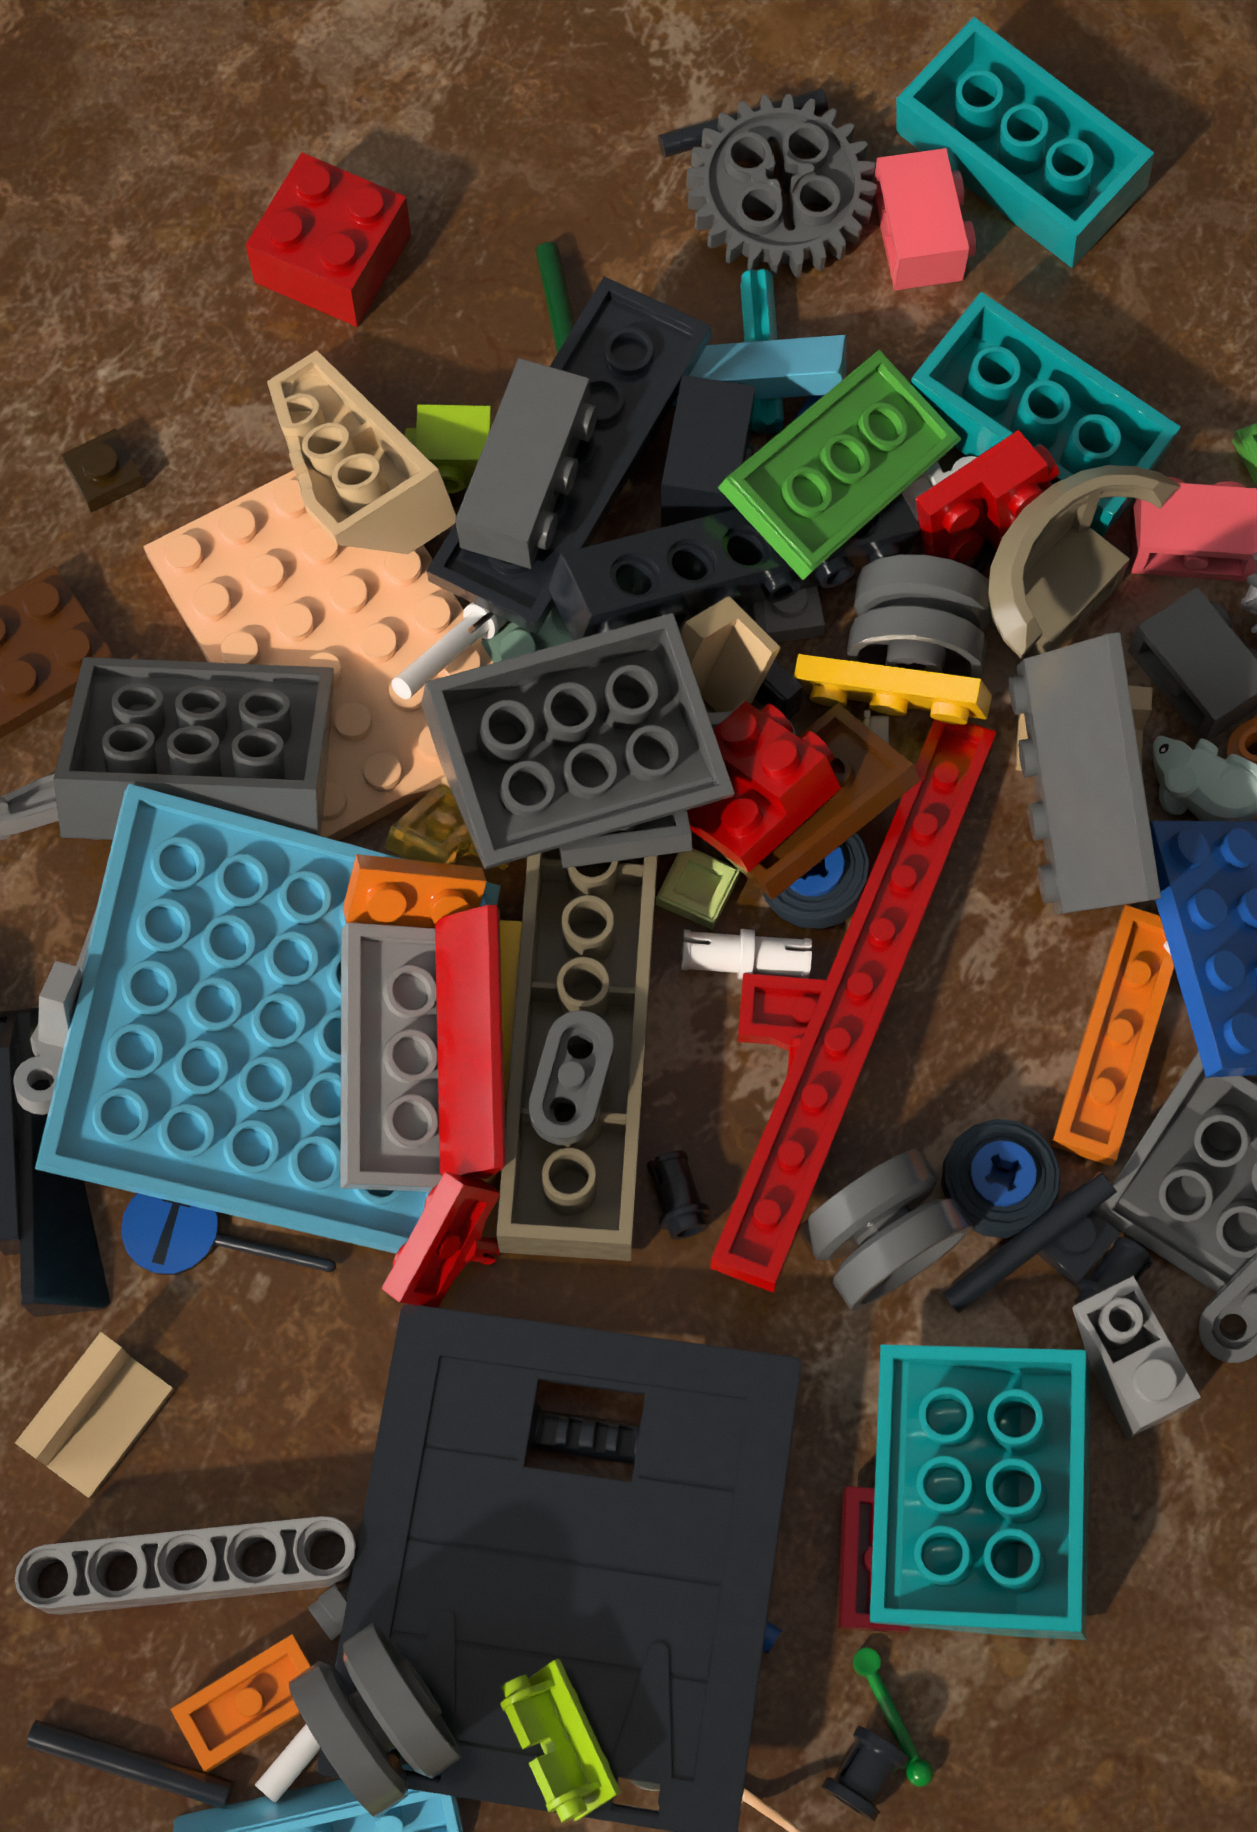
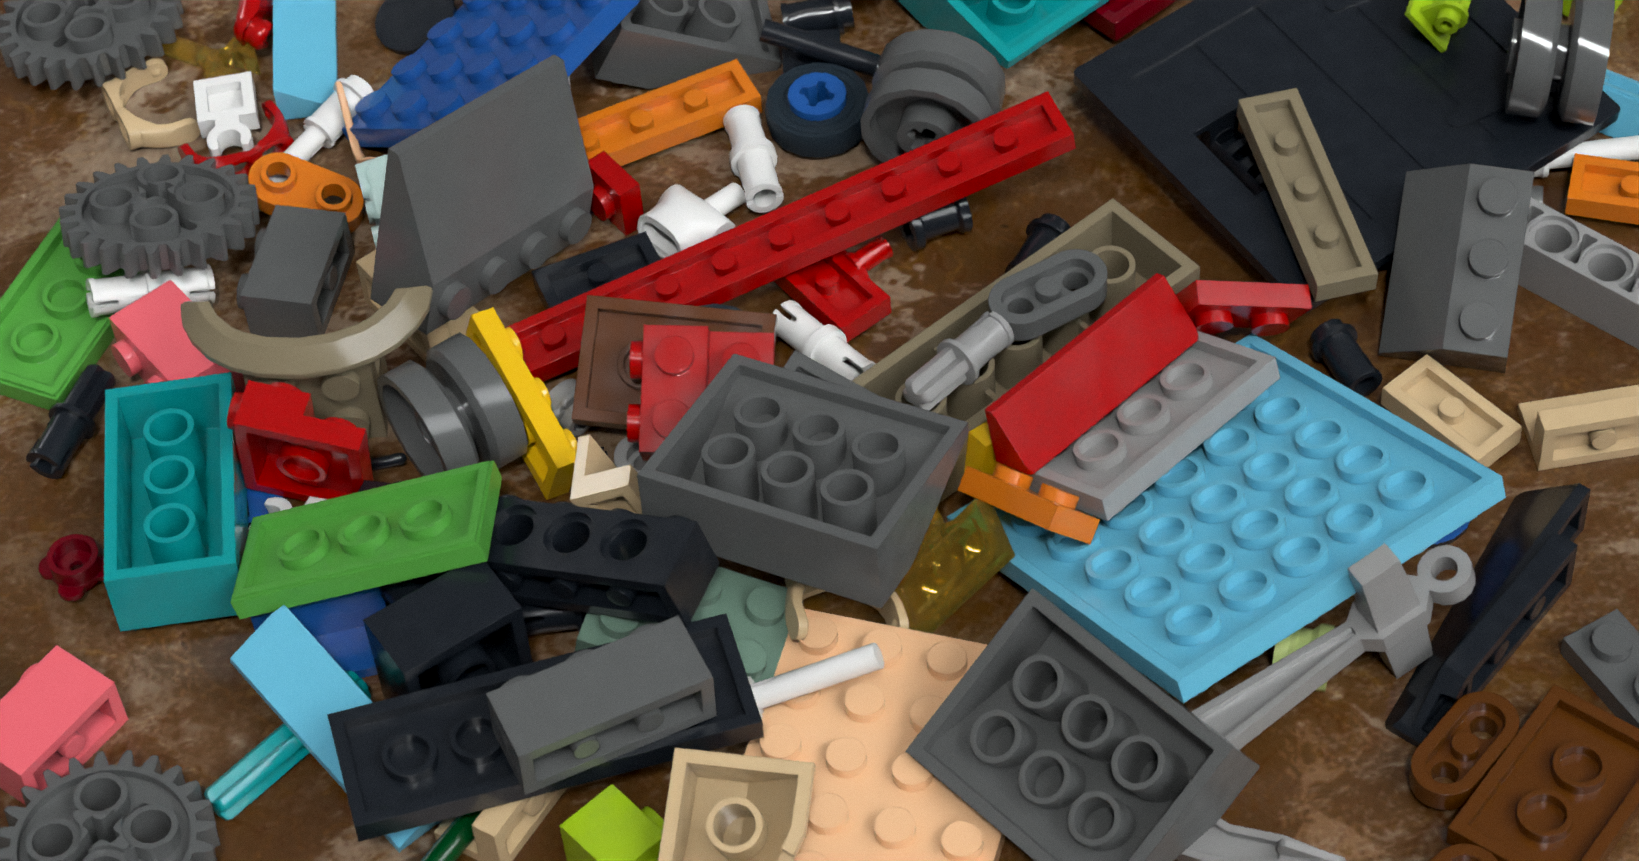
camera: 130 degrees left, 20 degrees down
(209, 1317) = (1451, 411): none -> tan plate
(299, 1440) = (1457, 265): none -> dark grey slope
(341, 1304) = (1337, 348): none -> black pin
(485, 1397) = (1307, 195): none -> dark tan plate
(577, 951) = (958, 361): none -> light grey axle
(975, 976) = (685, 219): none -> white piece
(979, 865) = (592, 269): none -> black plate
(997, 1083) = (753, 158): none -> white pin
(1058, 944) = (615, 193): none -> red plate
(1062, 325) = (65, 556): none -> dark red plate
(1203, 426) = (70, 423): none -> black axle

